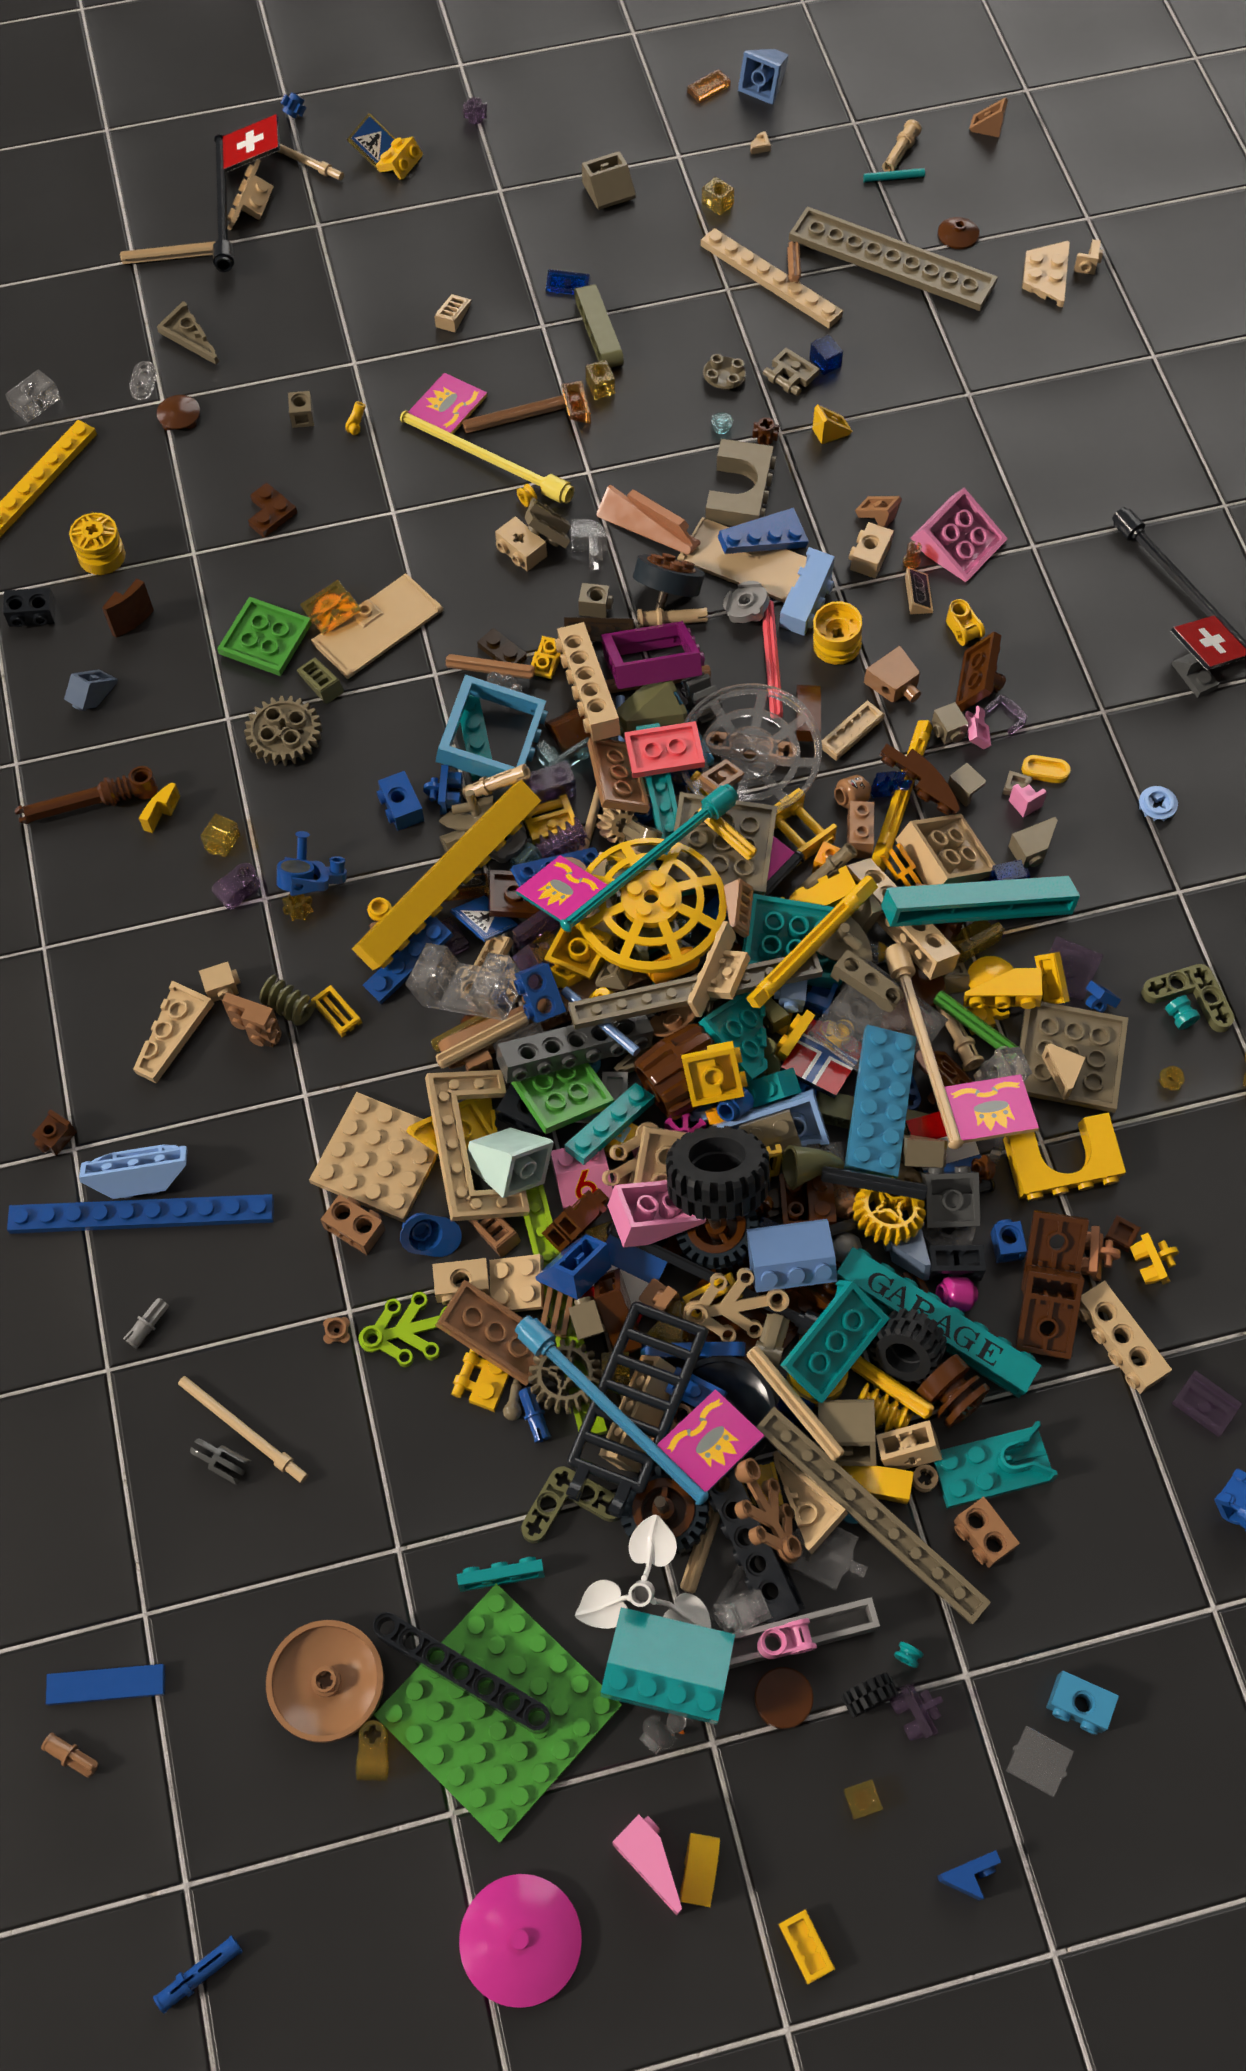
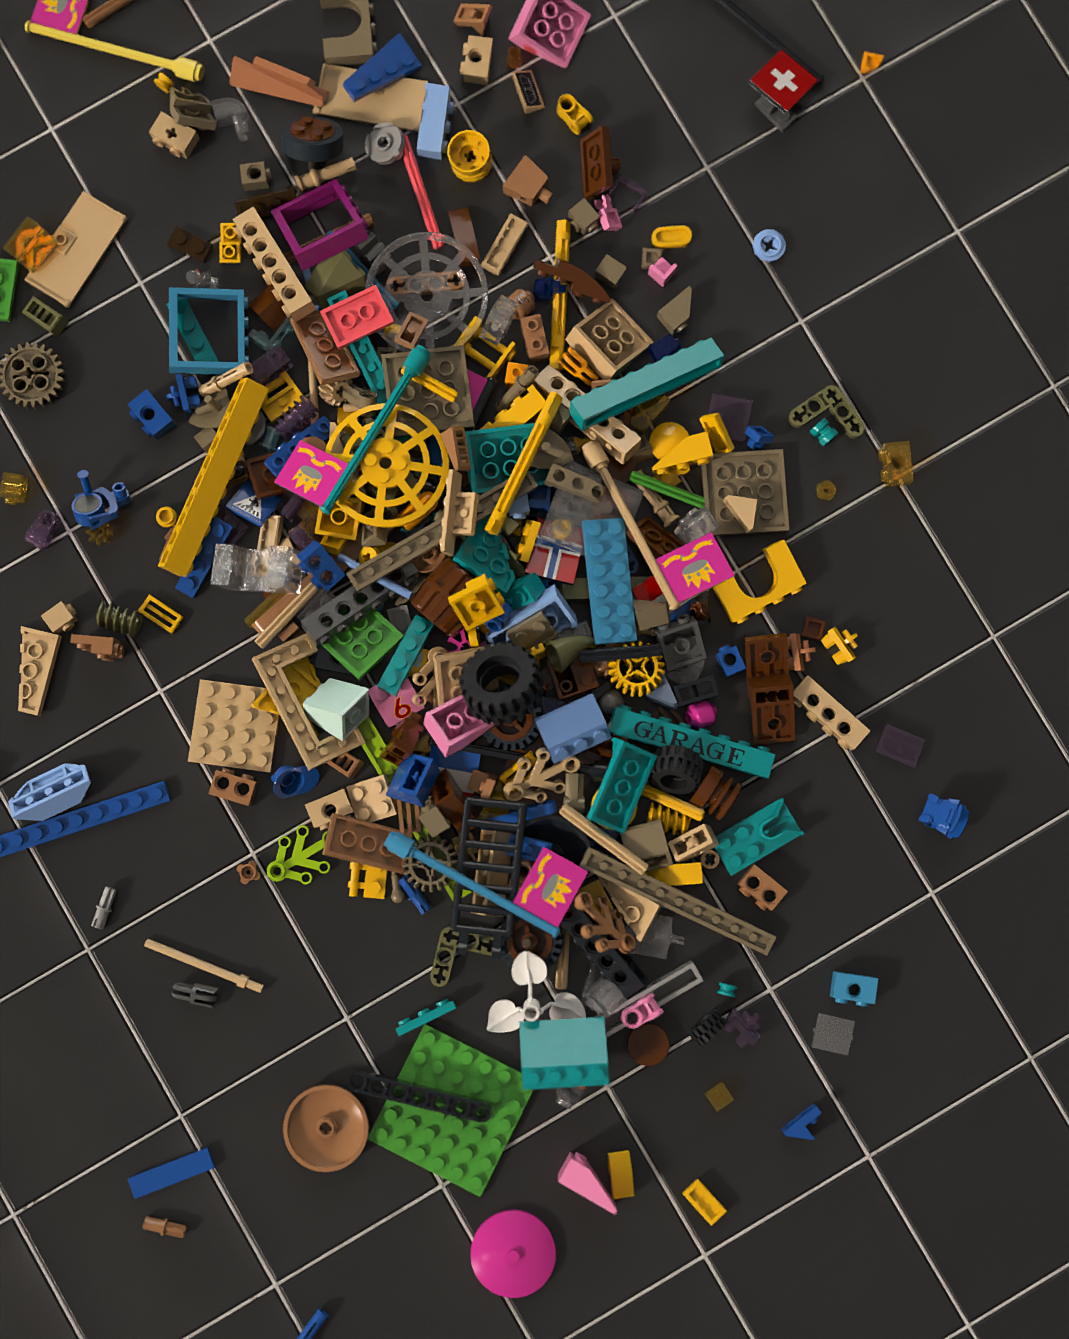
camera: 20 degrees left, 20 degrees up
(372, 1758) = (375, 1167): clear yellow piece -> none
(488, 666) = (185, 266): medium nougat axle -> none
(698, 1120) = (474, 638): none -> yellow tile
(825, 796) = (499, 320): none -> clear brick

